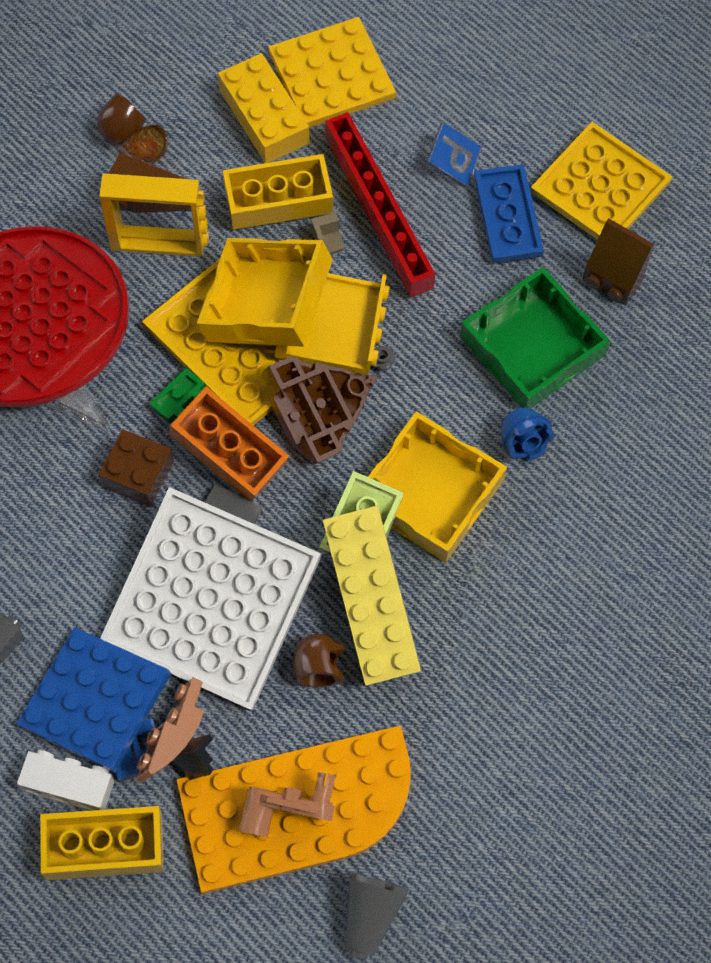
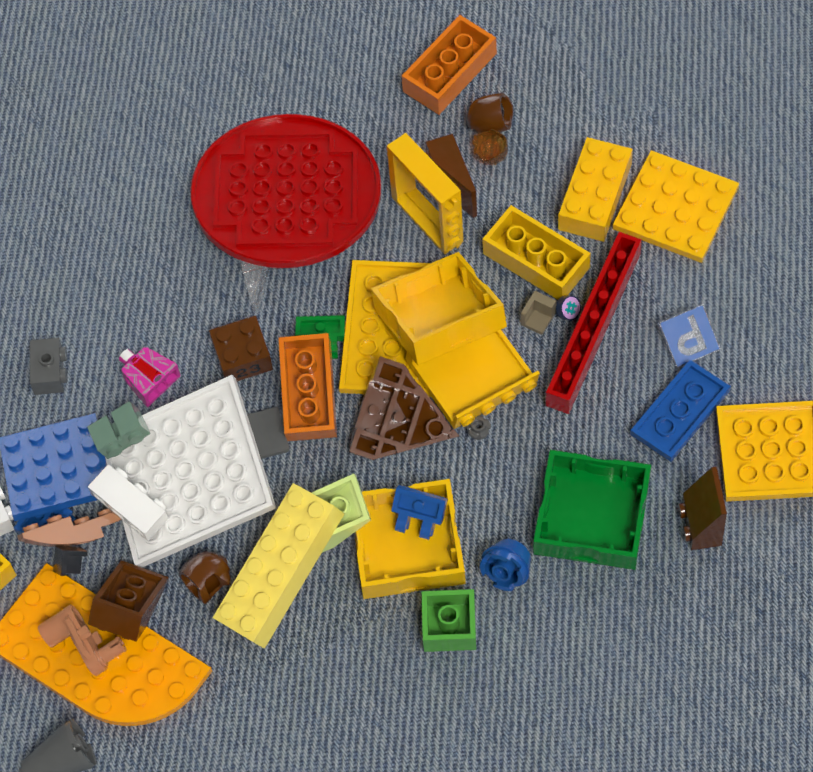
camera: 55 degrees right, 5 degrees down
(43, 109) = (449, 64): none -> orange brick
(81, 556) = (148, 373): none -> dark pink torso
(122, 618) = (126, 430): none -> sand green piece
(199, 663) = (129, 501): none -> white brick
(284, 739) = (127, 601): none -> reddish brown slope
(345, 211) = (568, 307): none -> tile
(417, 451) = (419, 505): none -> blue plate
(533, 514) = (448, 620): none -> bright green brick

